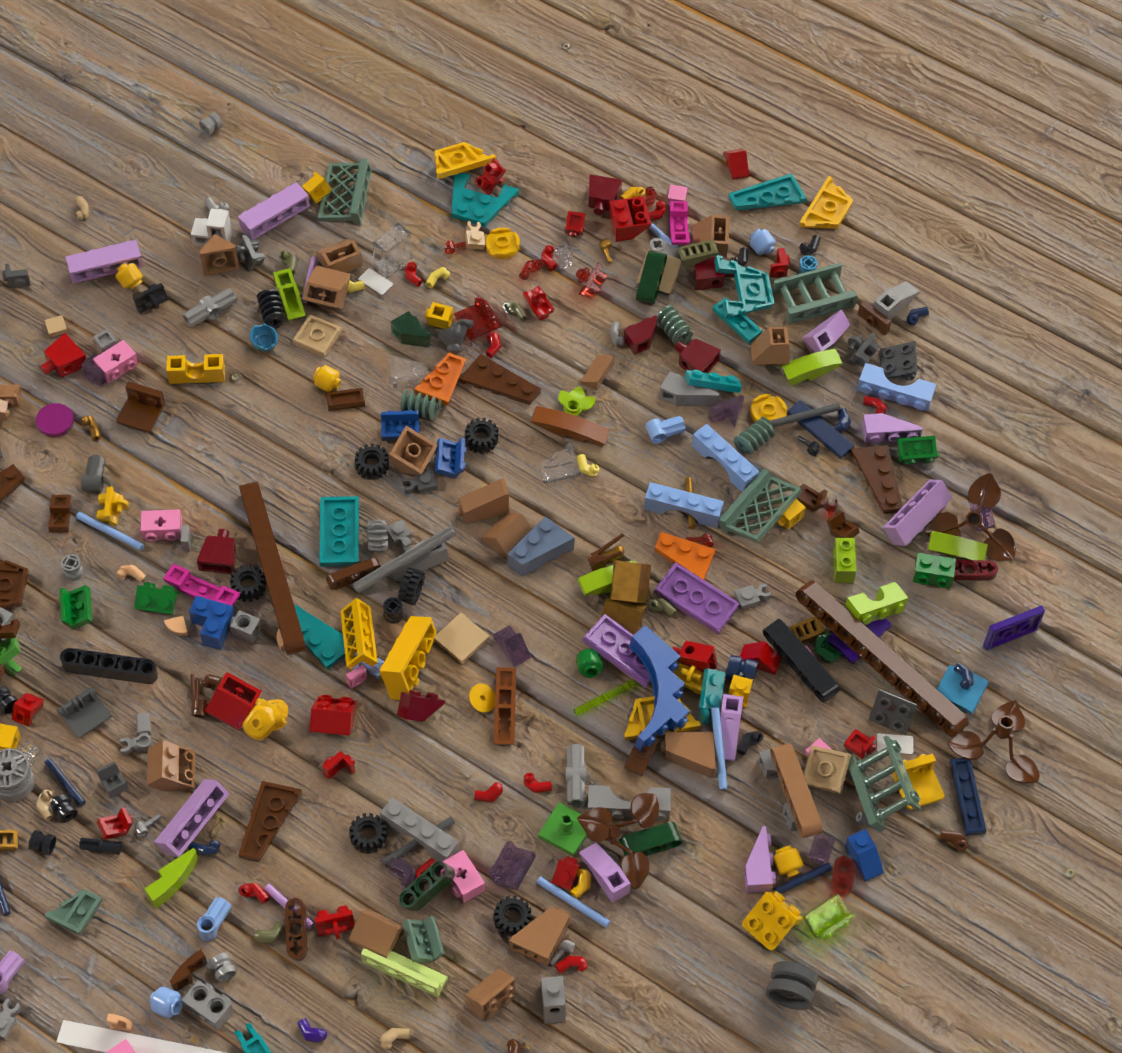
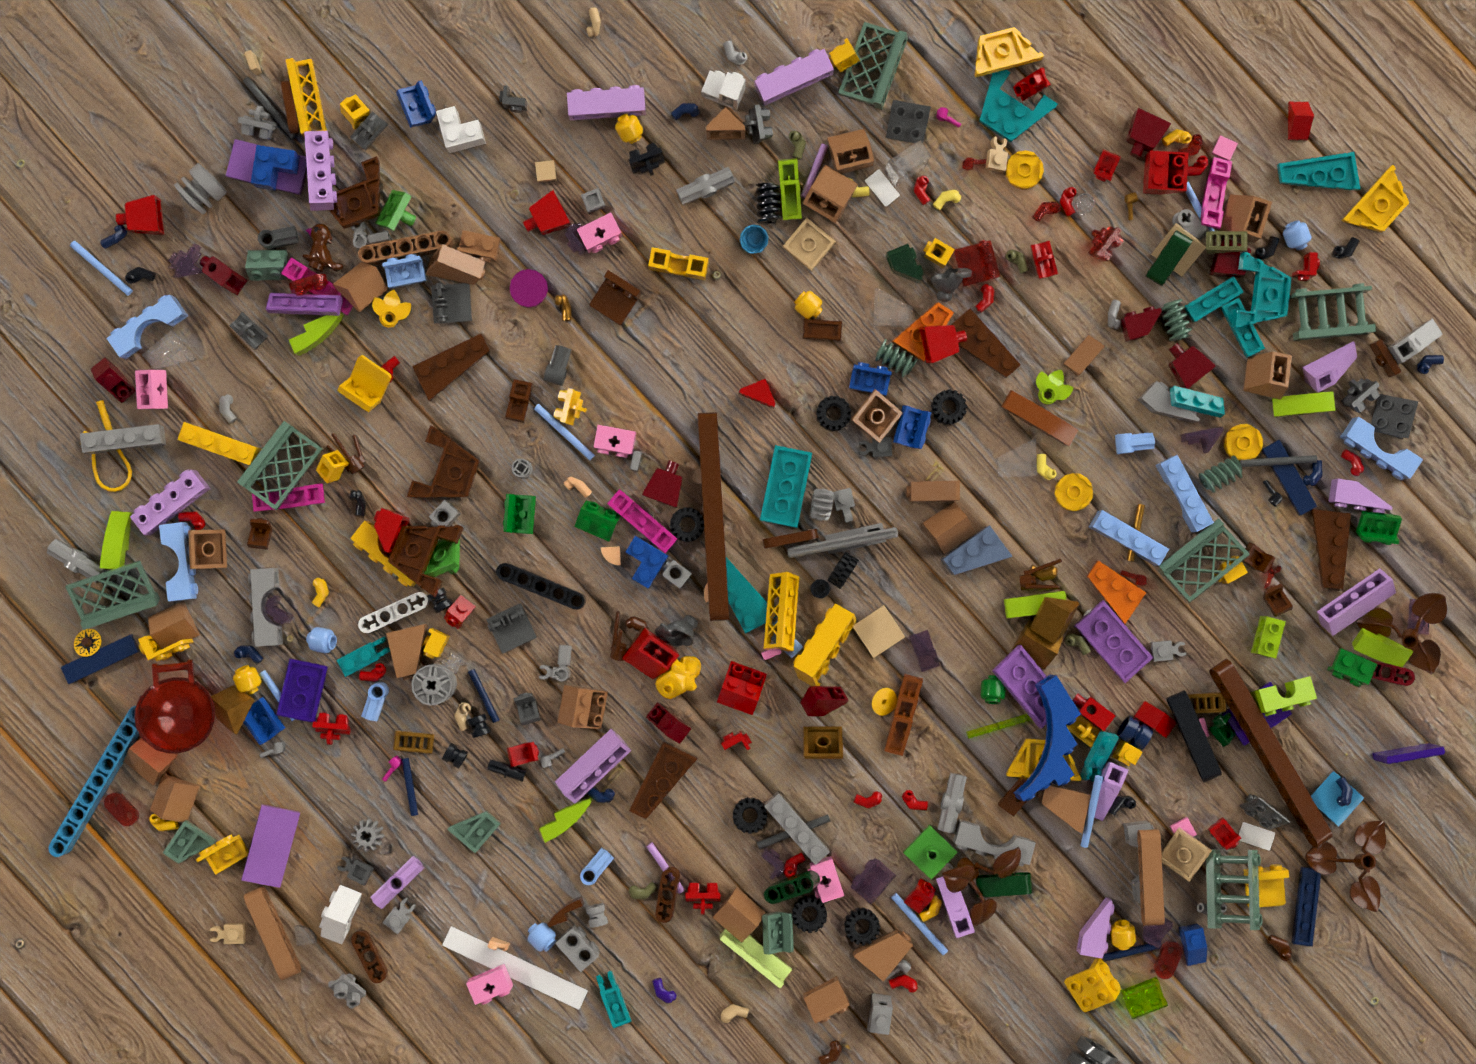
camera: 15 degrees right, 30 degrees up
(177, 255) = (685, 108): none -> dark blue arm
(254, 890) = (636, 845): red arm -> none
(258, 674) = (678, 632): none -> dark grey hair
(264, 762) = (668, 723): none -> dark red slope
(294, 458) = (759, 392): none -> red slope
(382, 220) = (908, 121): none -> dark grey hinge
(417, 217) = (942, 116): none -> dark pink hand
(429, 750) = (822, 742): none -> pearl gold slope
(456, 927) = (809, 925): none -> black tyre
(458, 379) = (940, 341): none -> red torso
(620, 482) = (1073, 492): none -> yellow tile
(703, 304) = (1213, 299): none -> teal plate
(807, 264) = (1331, 280): dark azure wheel -> none

